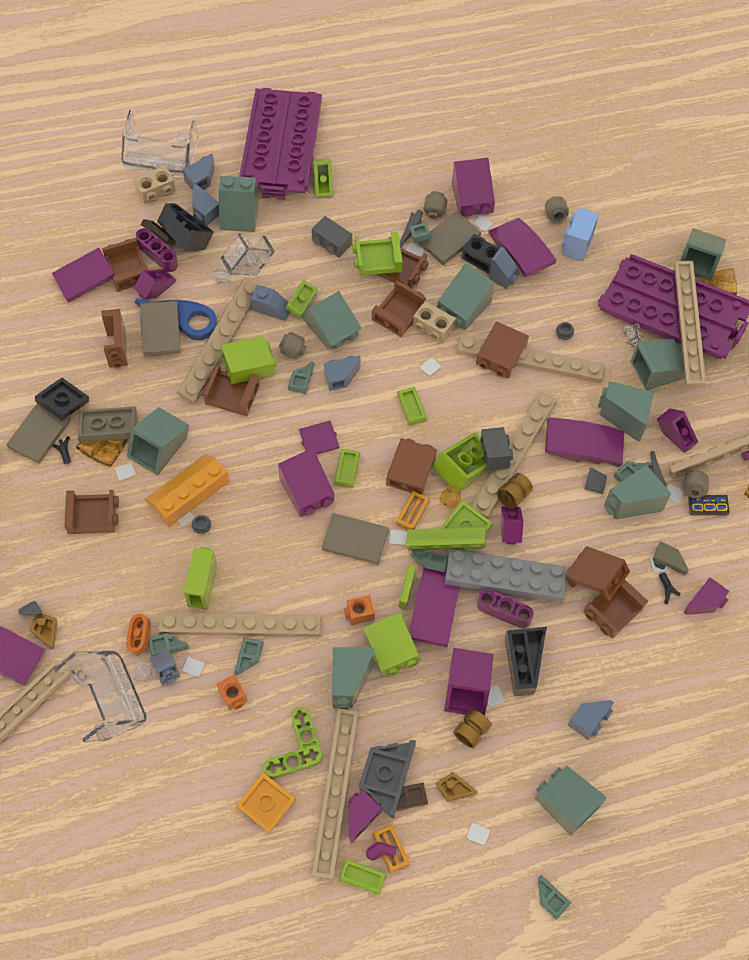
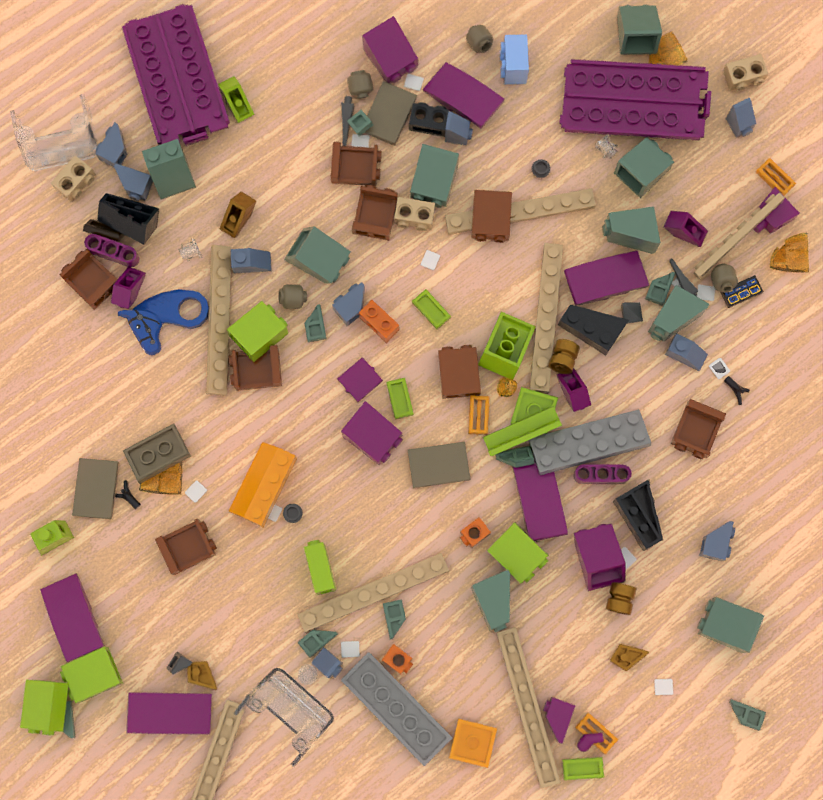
camera: 20 degrees left, 15 degrees up
(61, 399) = (101, 447): black plate -> none
(83, 274) = (53, 308): magenta tile -> none
(114, 326) = (113, 349): dark orange panel -> none
(138, 635) = (286, 643): orange plate -> none
(156, 440) = (212, 449): sand green slope -> none
(160, 328) = (157, 333): dark tan tile -> none
(209, 739) = (396, 709): none -> light grey plate
(247, 254) = (206, 222): clear brick -> none
(280, 263) = (237, 214): none -> pearl gold slope
(301, 298) = (277, 243): lime plate -> none
(305, 748) = (483, 678): lime beam -> none
(331, 236) = (275, 163): dark grey brick -> none
(359, 395) = (379, 321): none -> orange brick
(378, 255) = (332, 168): lime panel -> none
(386, 774) = (564, 672): dark grey wing -> none
(398, 537) = (476, 445): white sticker -> none
(407, 586) = (507, 493): lime tile -> none
(412, 797) = (592, 682): reddish brown tile -> none
(496, 448) = (530, 323): dark grey brick -> none
(554, 477) = (593, 327): none -> black wedge
(598, 572) = (671, 406): dark orange panel -> none
(633, 534) = (686, 352): none -> sand blue slope
(670, 557) = (727, 359): olive tile -> none
(689, 324) = (657, 117): tan plate -> none
(708, 598) = (776, 384): magenta slope -> none

